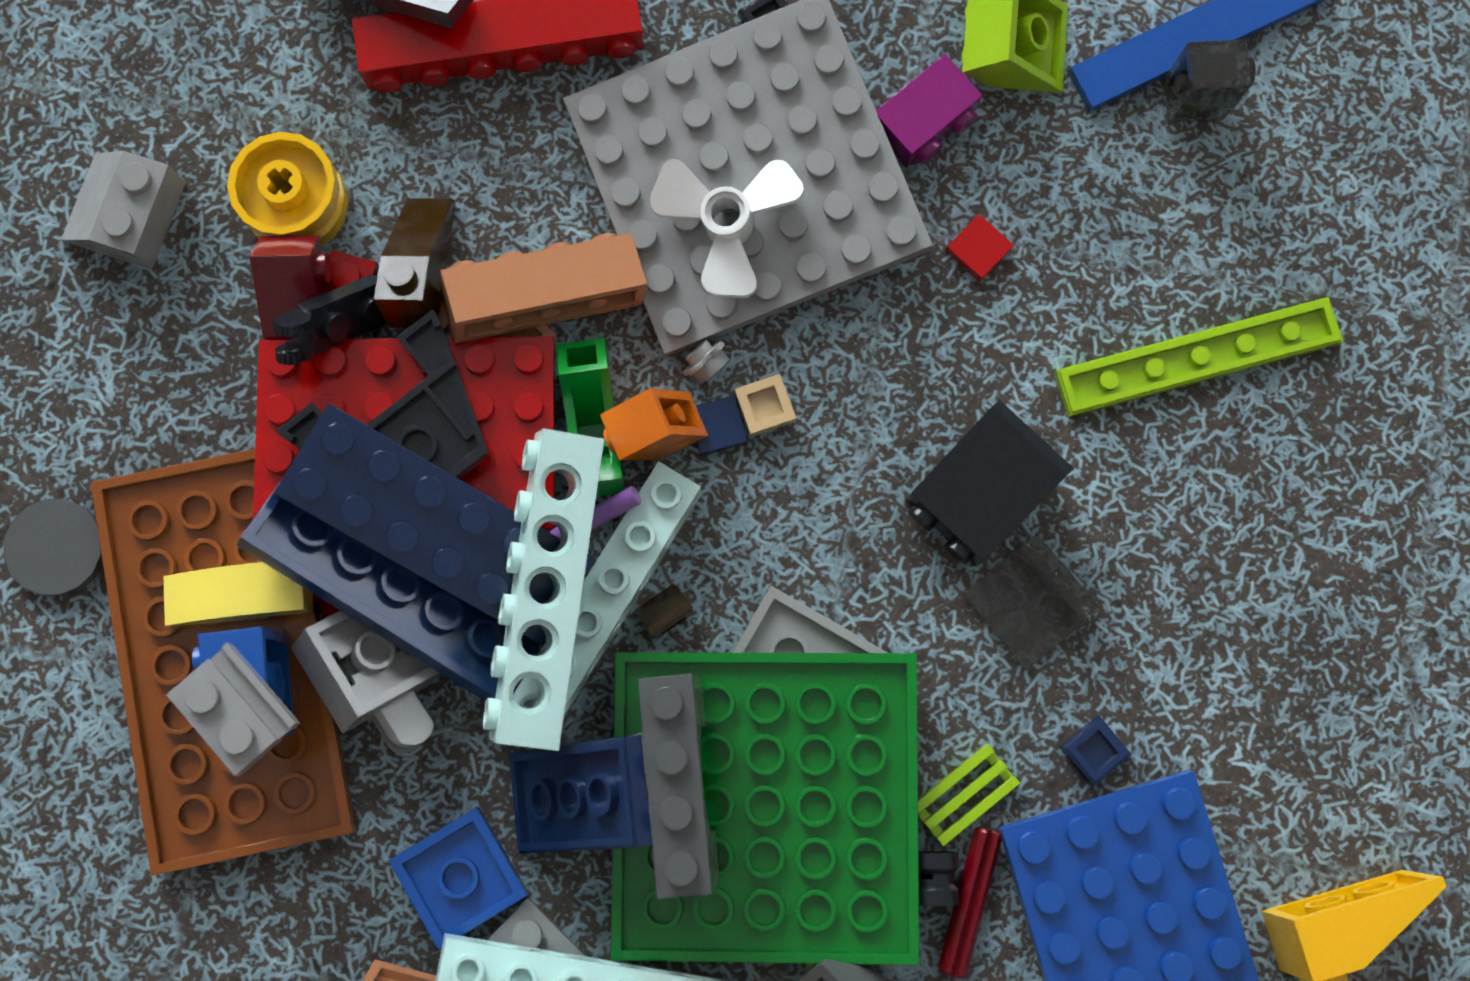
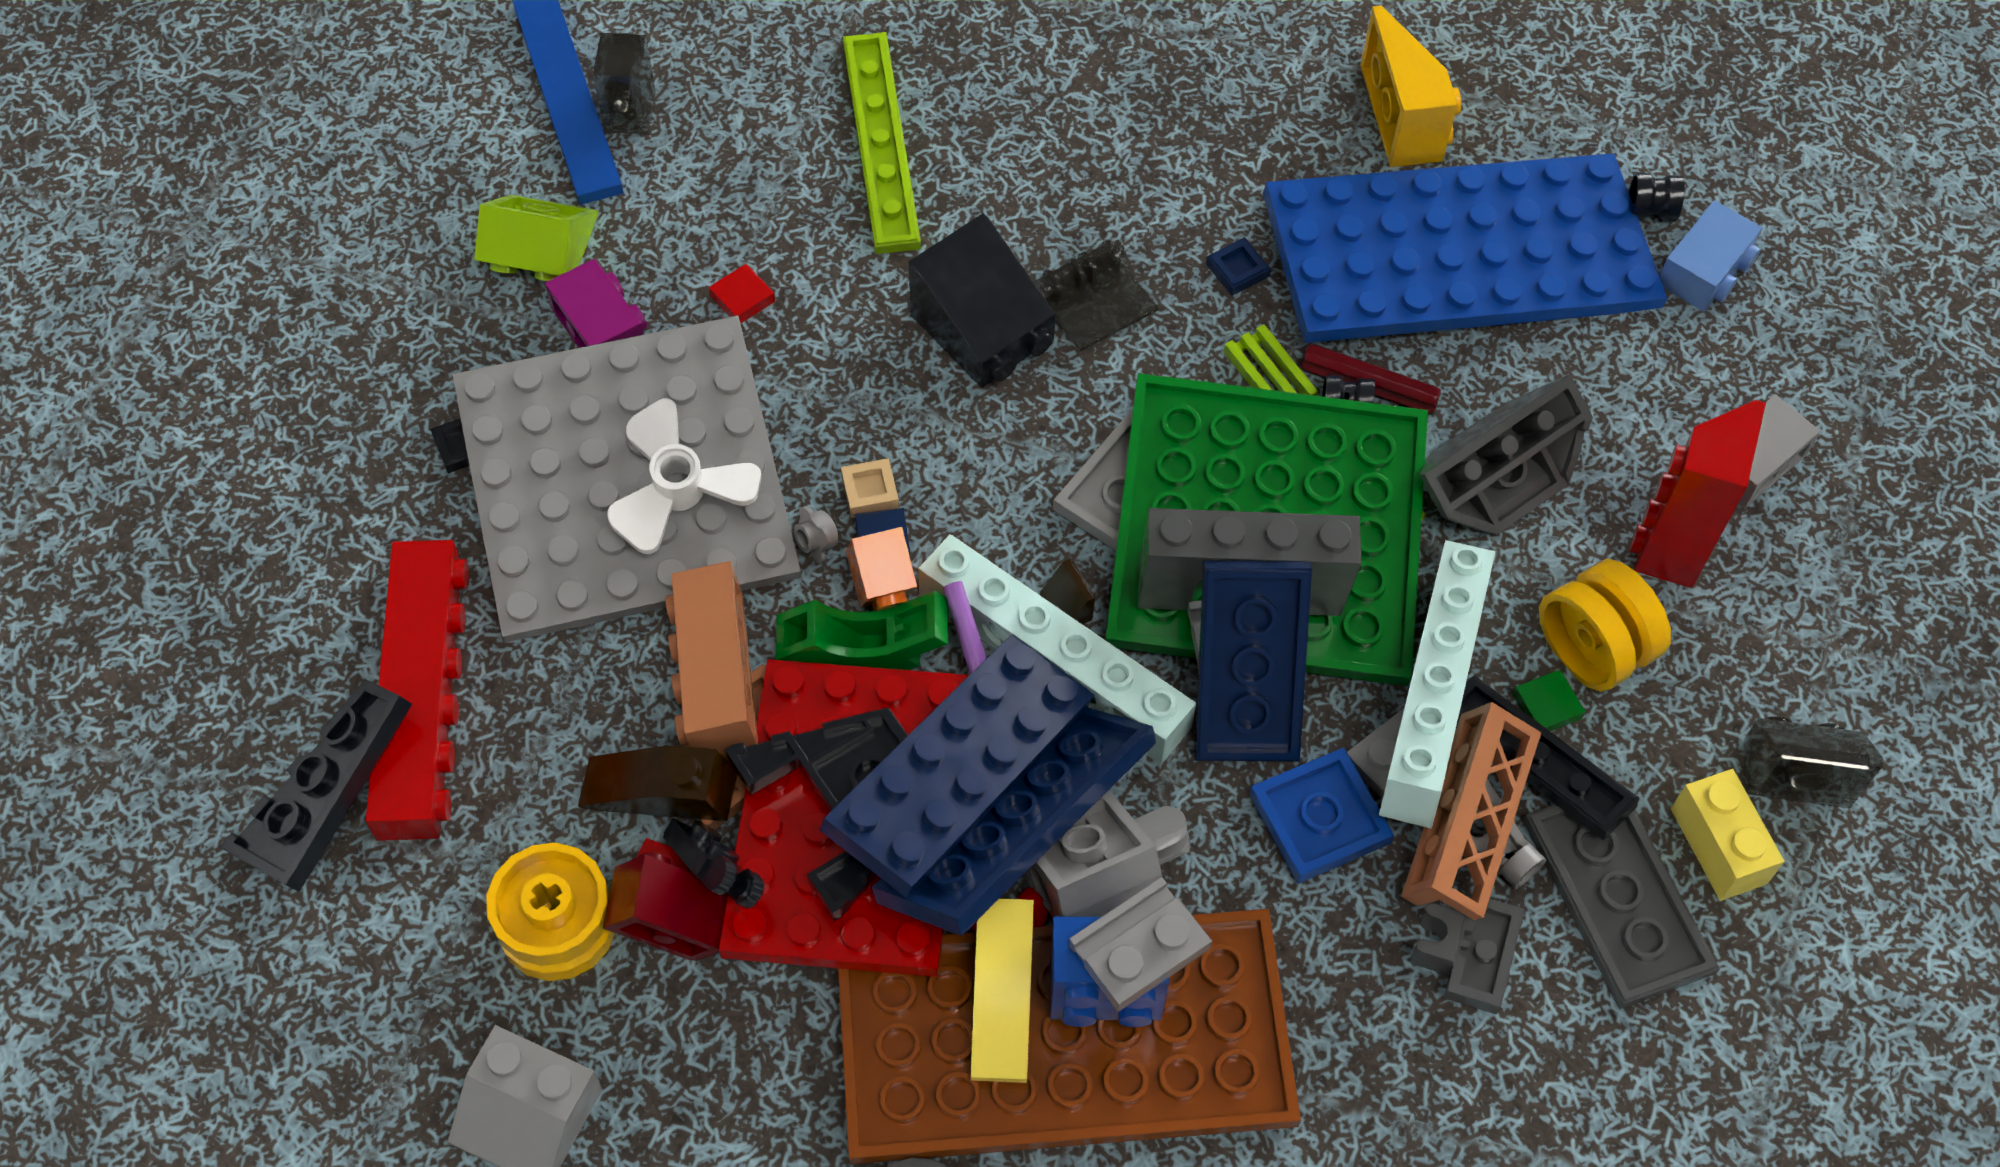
camera: 80 degrees left, 20 degrees down
(579, 462) = (1043, 655): light aqua brick -> none

